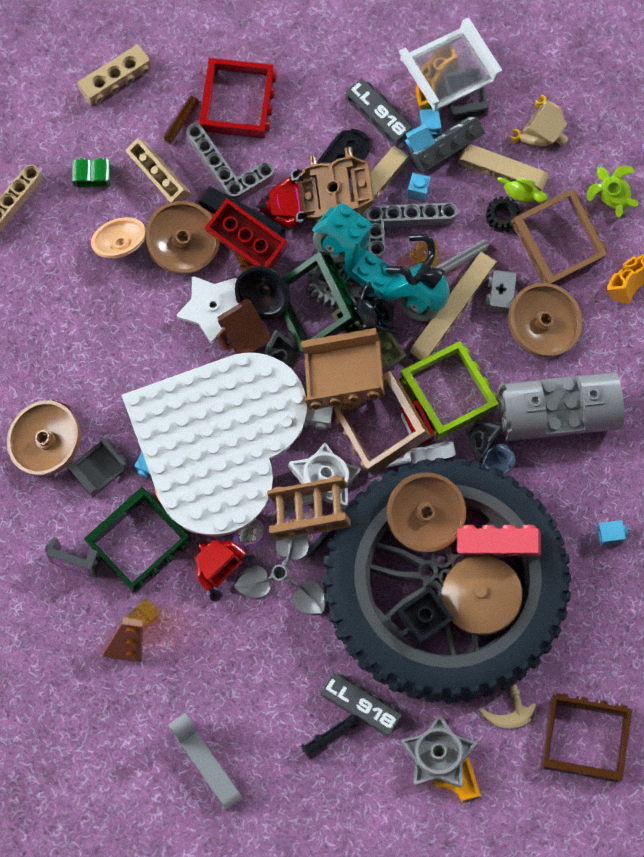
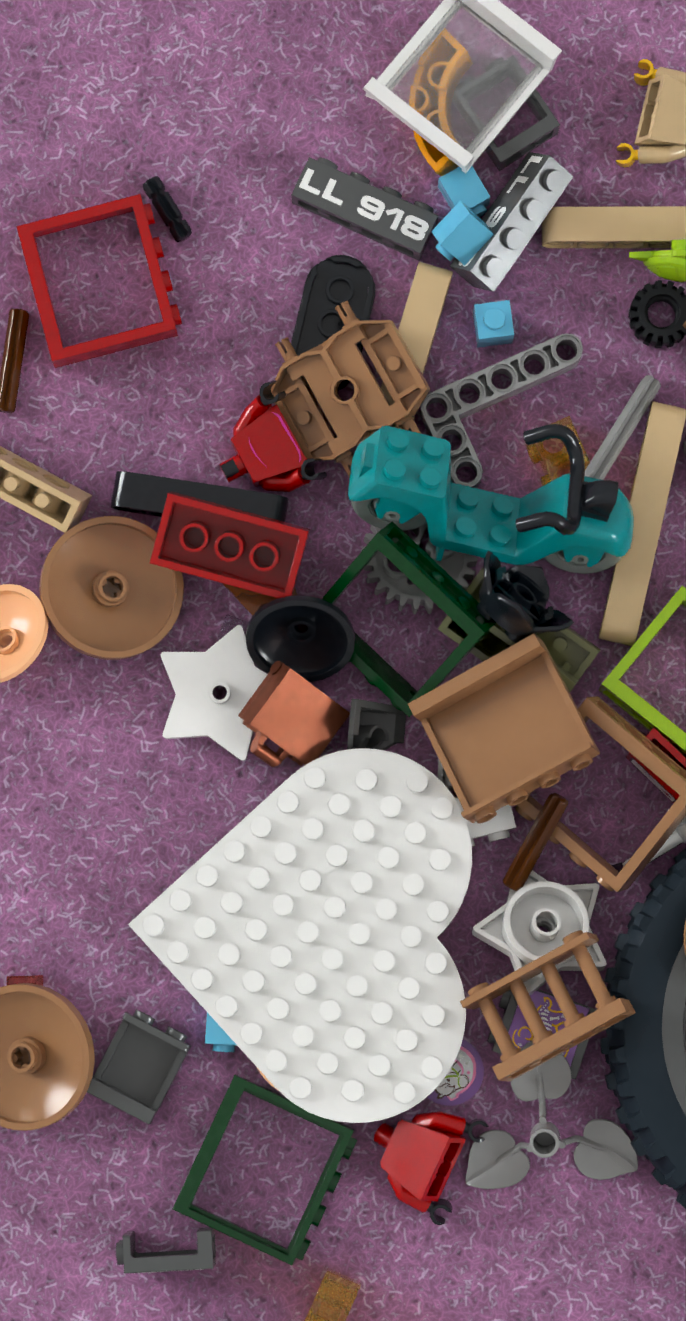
camera: 20 degrees left, 10 degrees up
(223, 168) = (130, 426): light grey beam -> none
(284, 79) = (167, 209): none -> black axle
(337, 431) = (535, 841): none -> reddish brown axle

